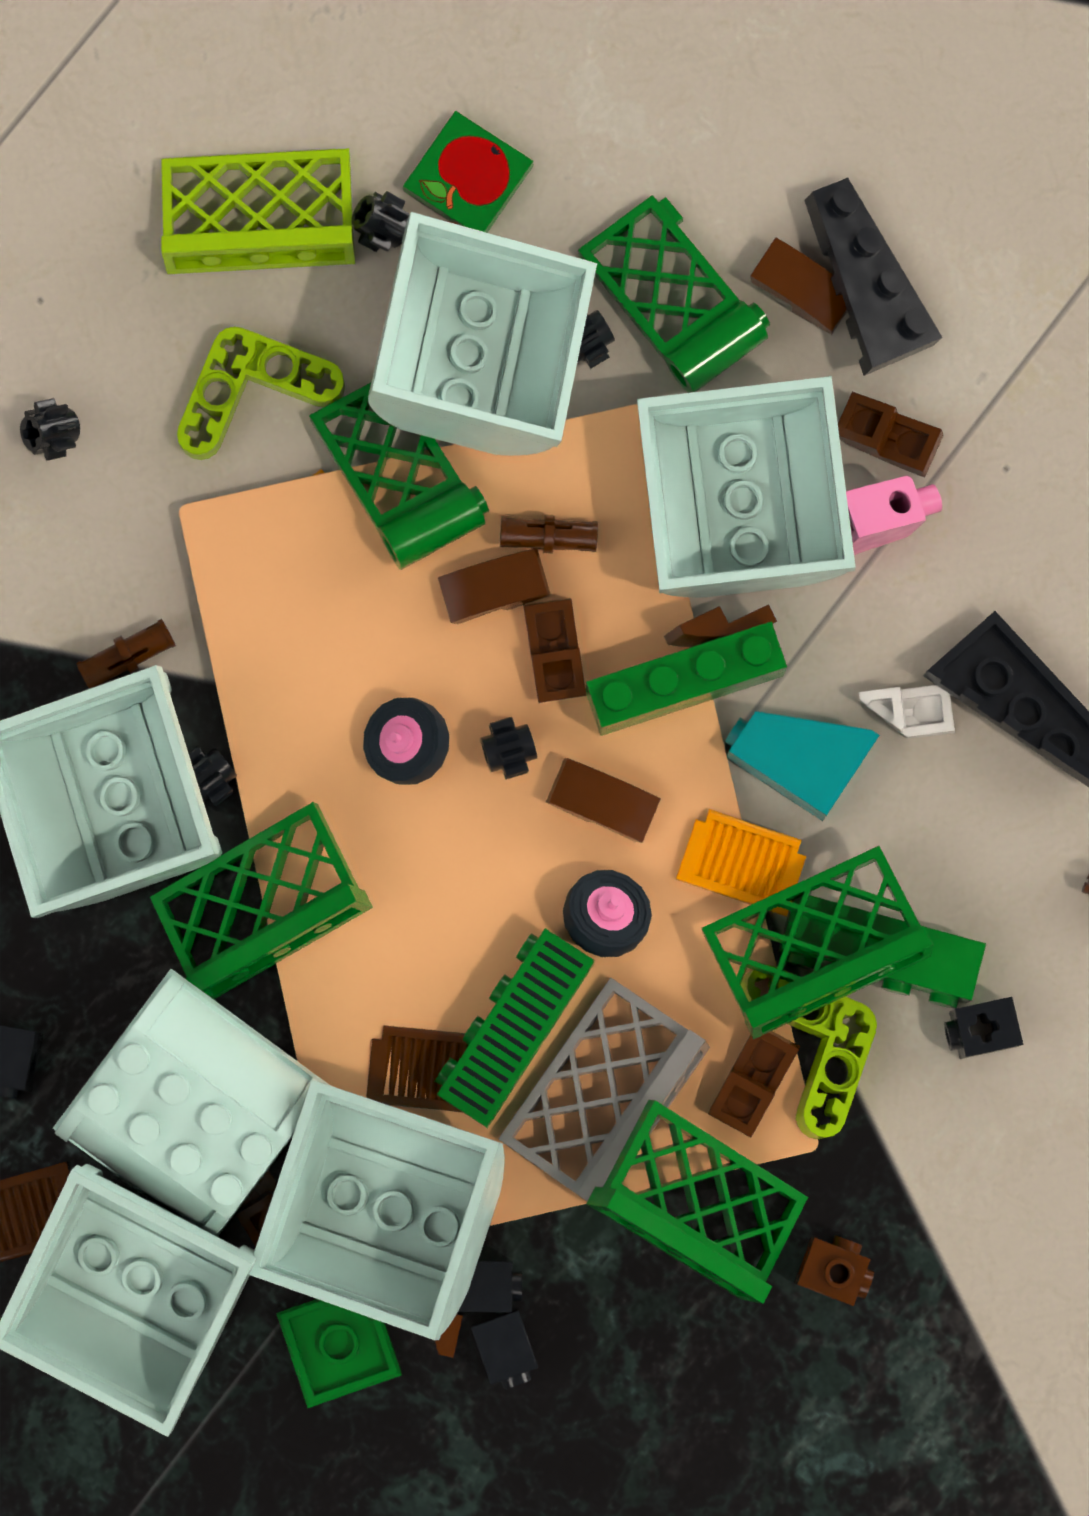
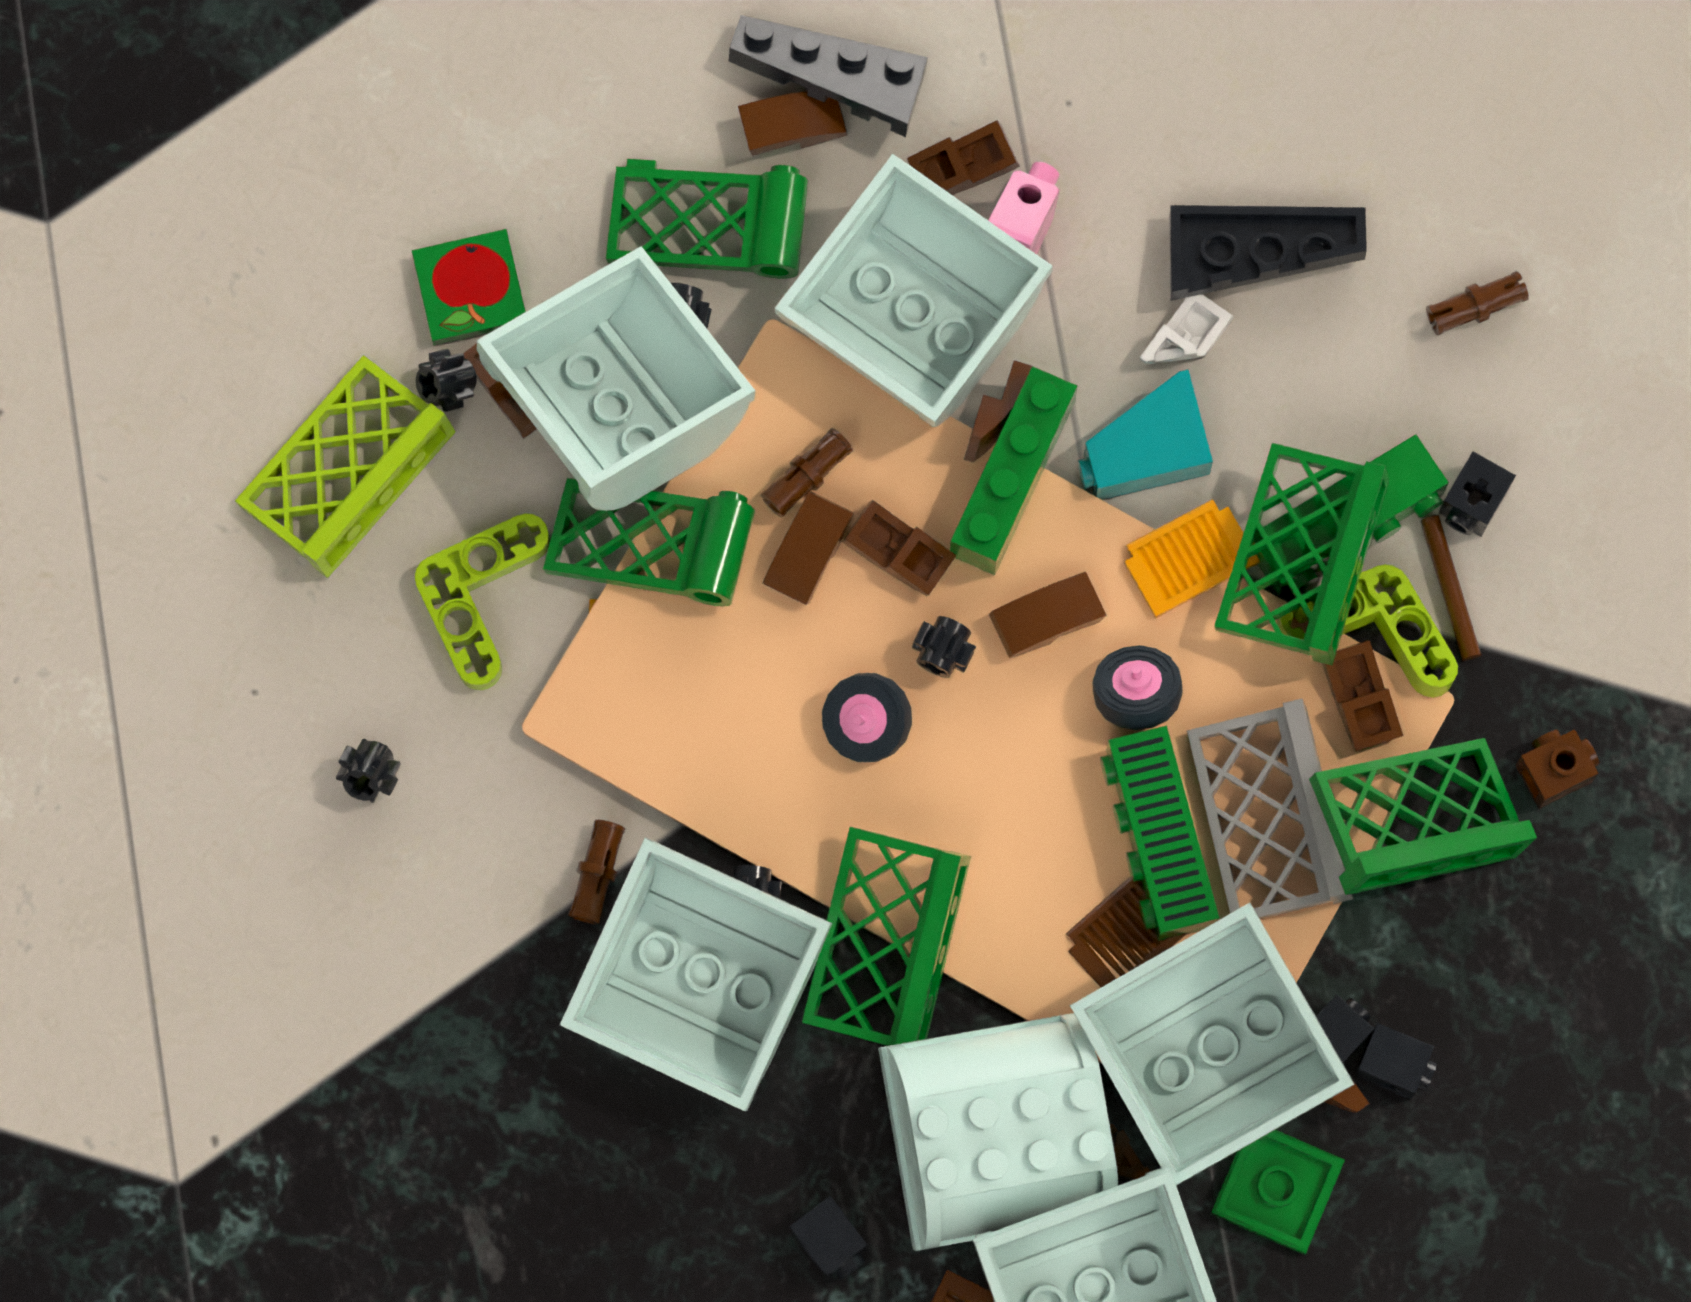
camera: 45 degrees left, 5 degrees down
(899, 1071) = (1450, 588): none -> reddish brown bar

